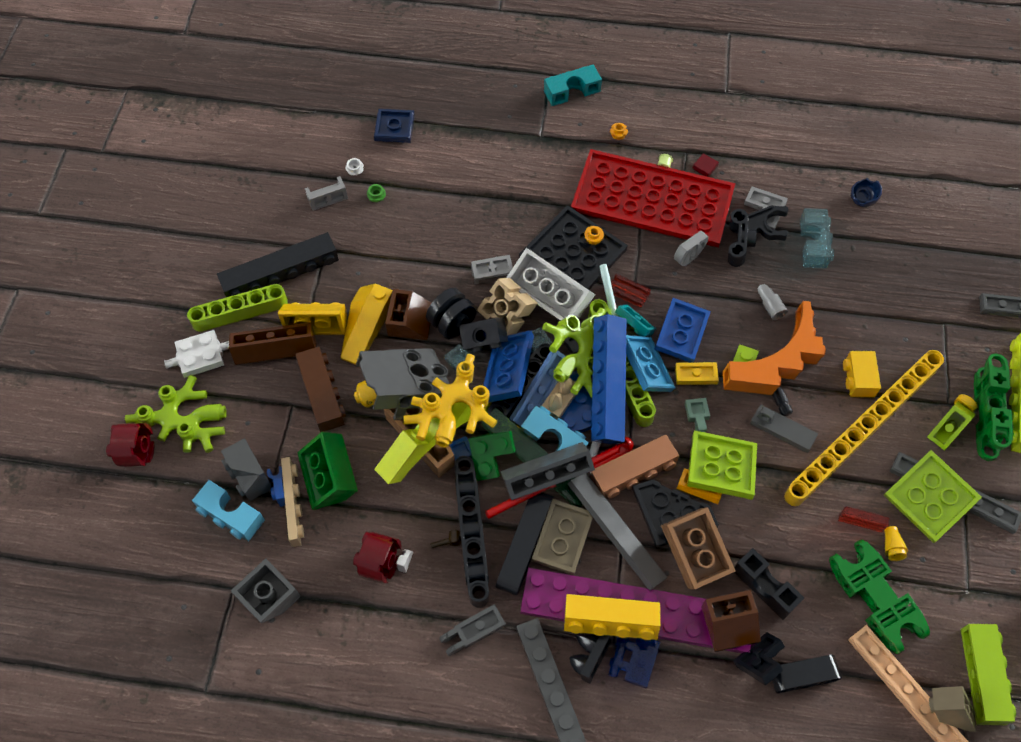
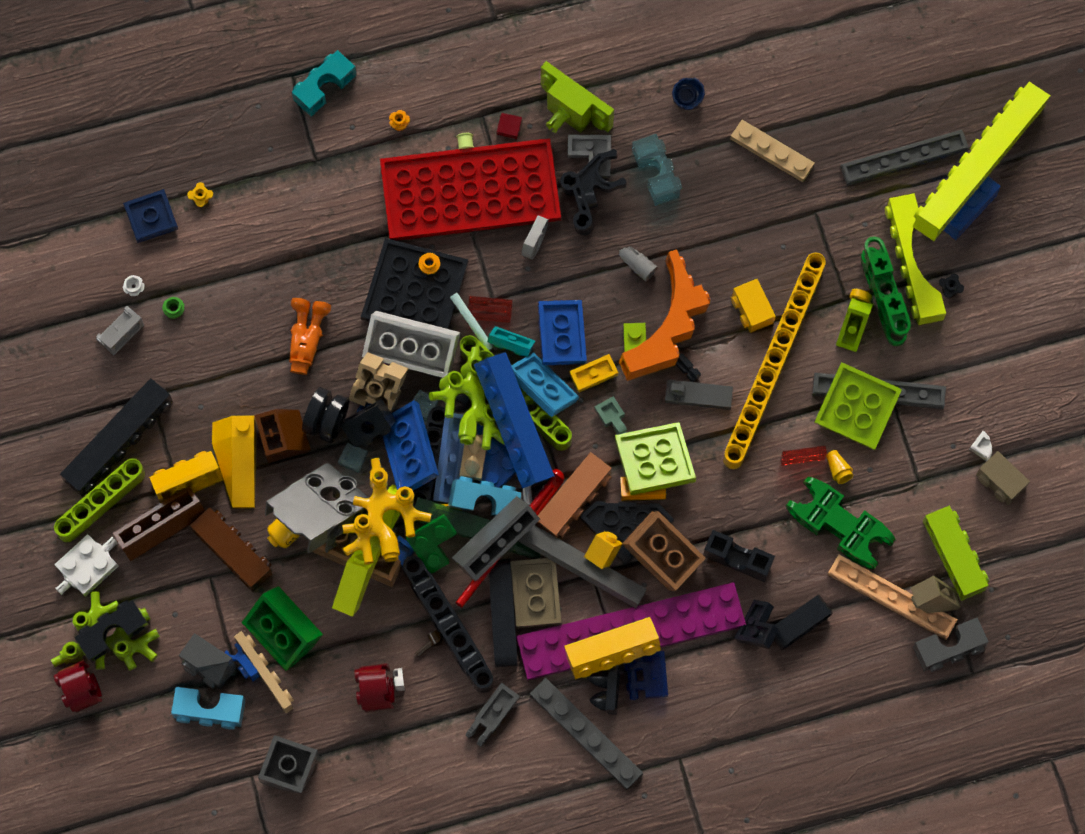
camera: 25 degrees left, 10 degrees up
(165, 410) = (93, 638): none -> black arch
(439, 125) = (200, 201): none -> yellow plate
(464, 253) = (304, 340): none -> orange piece
(491, 268) = (341, 346): light grey hinge -> none
(641, 523) = (603, 549): none -> yellow brick
(732, 620) = (719, 604): reddish brown slope -> none
(767, 163) = (573, 103): none -> lime brick
(923, 262) = (772, 150): none -> tan plate

